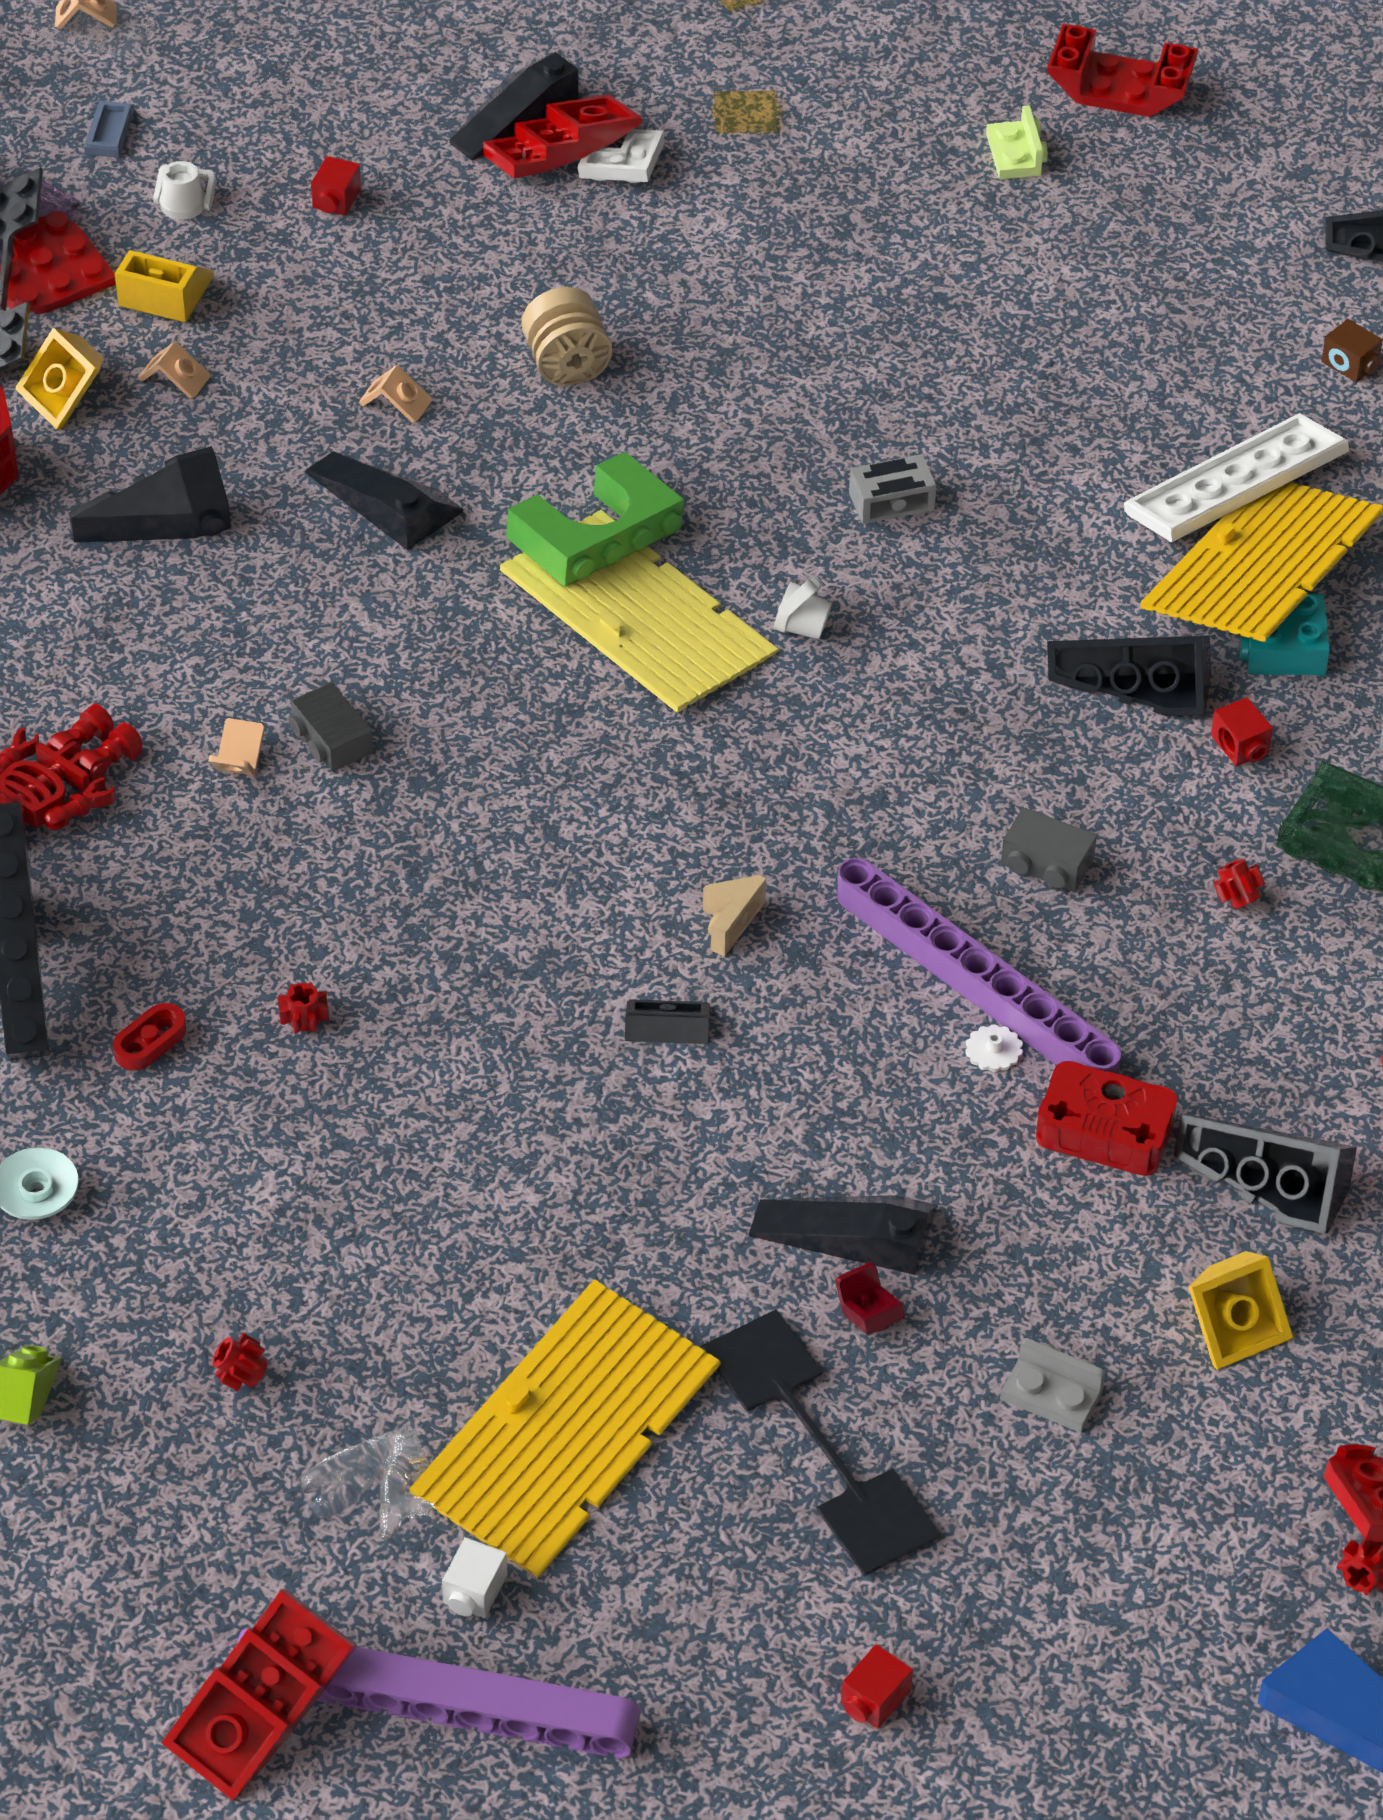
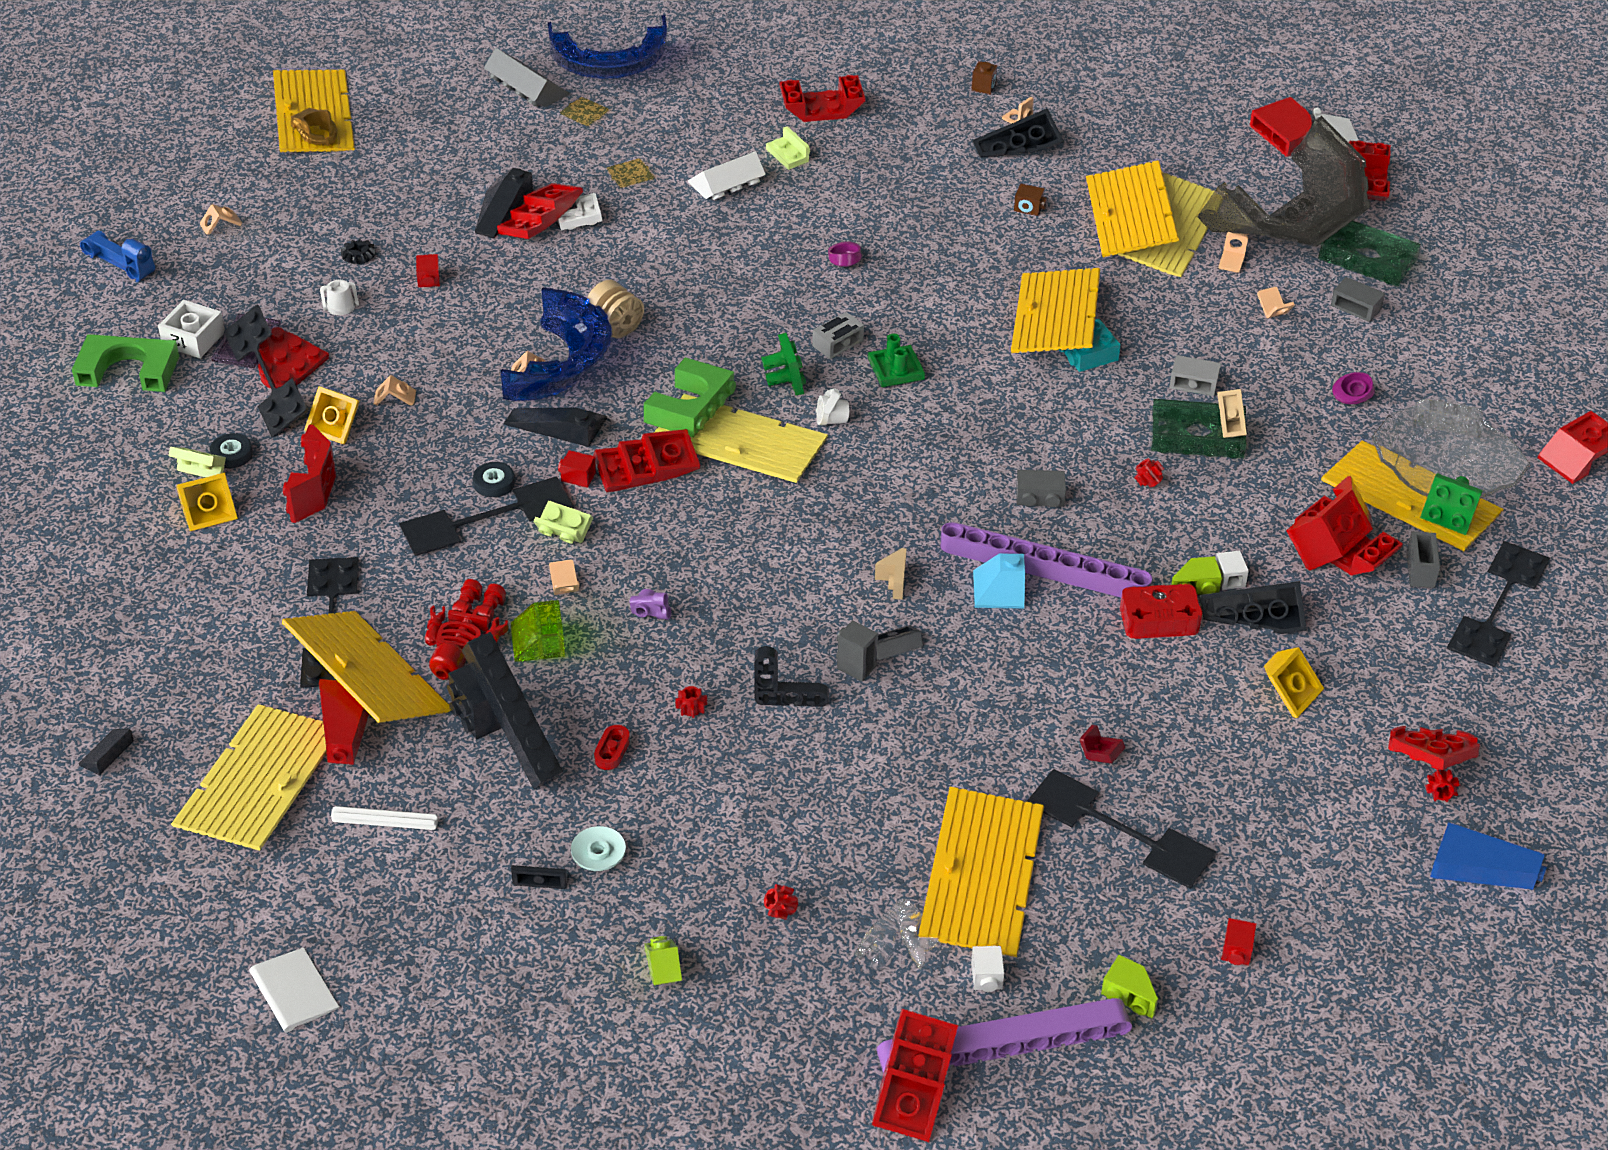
camera: 25 degrees left, 5 degrees down
(108, 609) = (438, 531): none -> black hinge
(109, 129) = (272, 278): sand blue tile -> none
(151, 823) = (538, 632): none -> clear neon green slope
(160, 285) = (360, 349): yellow slope -> none
(174, 503) = (444, 461): black wedge -> none
(231, 571) = (493, 488): none -> black bush
(270, 125) = (353, 256): none -> black gear
(292, 659) = (564, 522): none -> yellowish green bracket
(330, 727) = (609, 549): dark grey brick -> none
(338, 834) = (650, 604): none -> medium lavender plate
(362, 581) = (577, 468): none -> red brick
(426, 1034) = (766, 689): none -> black beam
(472, 601) = (646, 460): none -> red slope
(503, 359) = (584, 331): none -> clear blue windscreen
(586, 1015) = (857, 650): none -> dark grey piece
(666, 1686) = (1132, 985): none -> lime slope
(777, 513) = (791, 362): none -> green plate
(856, 1228) = (1065, 712): black wedge -> none
(887, 984) = (1000, 582): none -> medium azure slope
(888, 165) = (728, 176): none -> white slope
(953, 566) = (895, 363): none -> green plate
(992, 353) = (844, 254): none -> magenta hat
(994, 1048) = (1075, 597): white piece -> none
(1054, 1385) = (1223, 754): light grey bracket -> none
(1152, 671) = (1033, 383): black wedge -> none
(1203, 1082) = (1201, 573): none -> lime slope
(1235, 477) = (1011, 277): white tile -> none
(1241, 732) = (1099, 399): red brick -> none
(1264, 1090) = (1232, 569): none -> white brick

